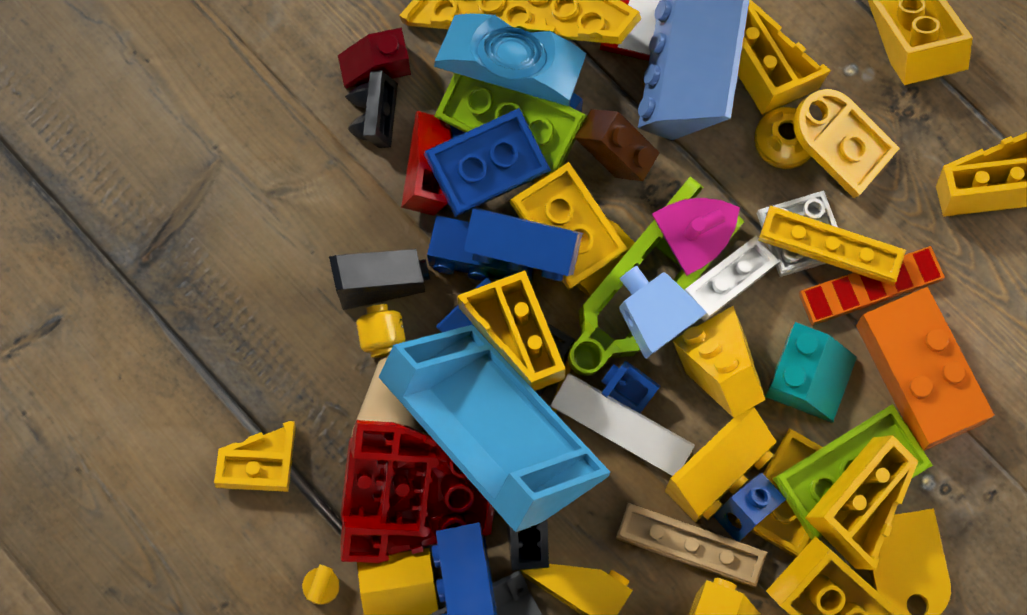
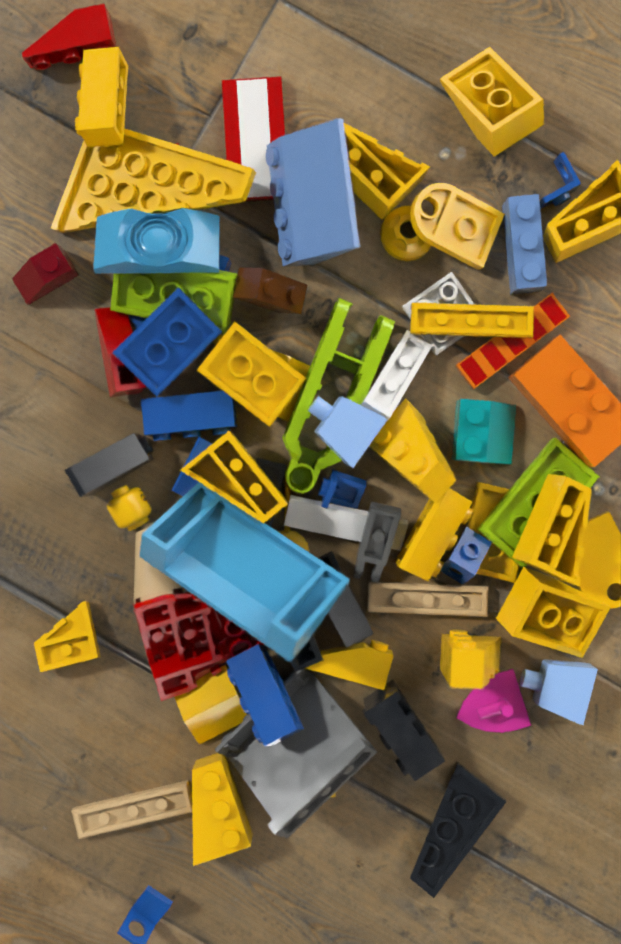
camera: 15 degrees left, 15 degrees up
(321, 585) = (151, 722): yellow plate -> none
(379, 99) = (60, 309): black tile -> none
(522, 244) = (219, 406): blue brick -> none
(593, 527) = (346, 611): none -> black slope
(653, 451) = (377, 539): none -> dark grey hinge
(697, 229) = (358, 344): dark pink shield -> none
(913, 185) = (524, 244): none -> medium blue brick
(969, 144) = (571, 180): none -> blue bracket

